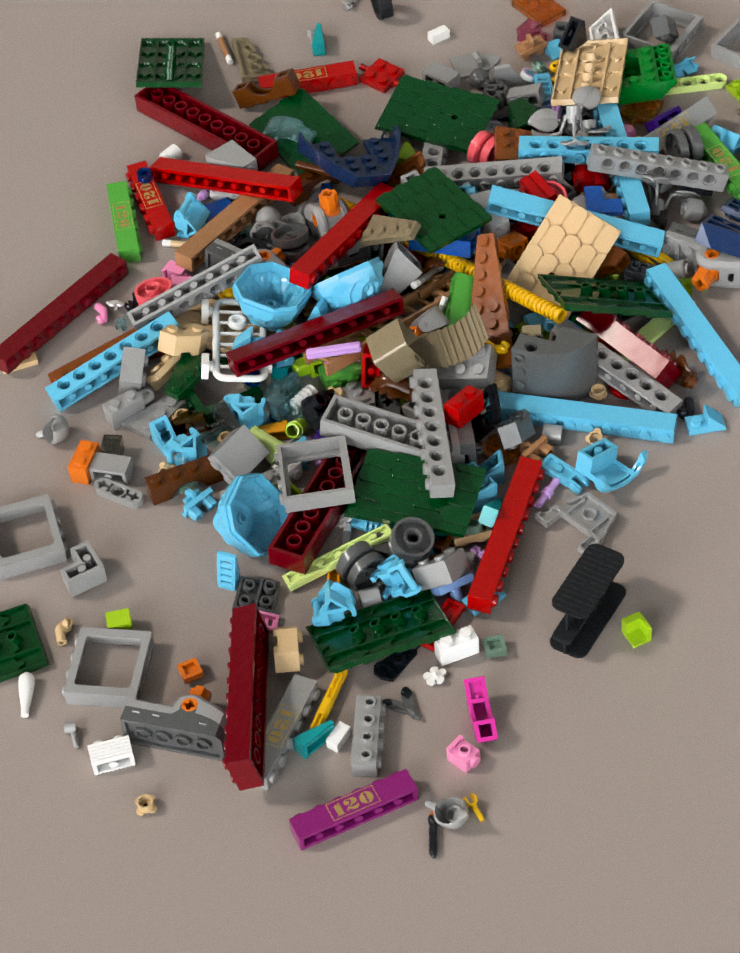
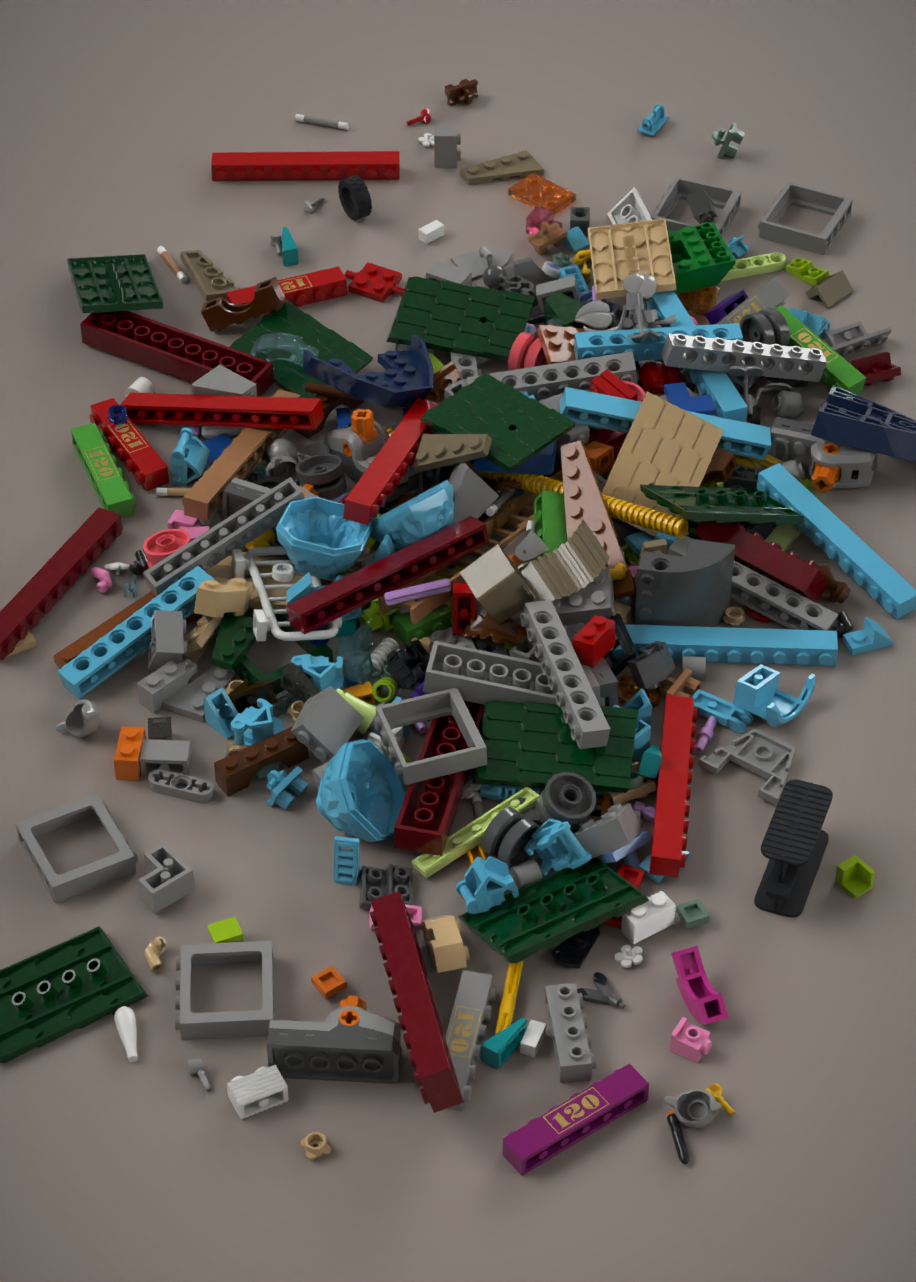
camera: 15 degrees left, 5 degrees down
(574, 35) = (602, 218): black slope -> none
(594, 434) = (745, 662): tan plate -> none

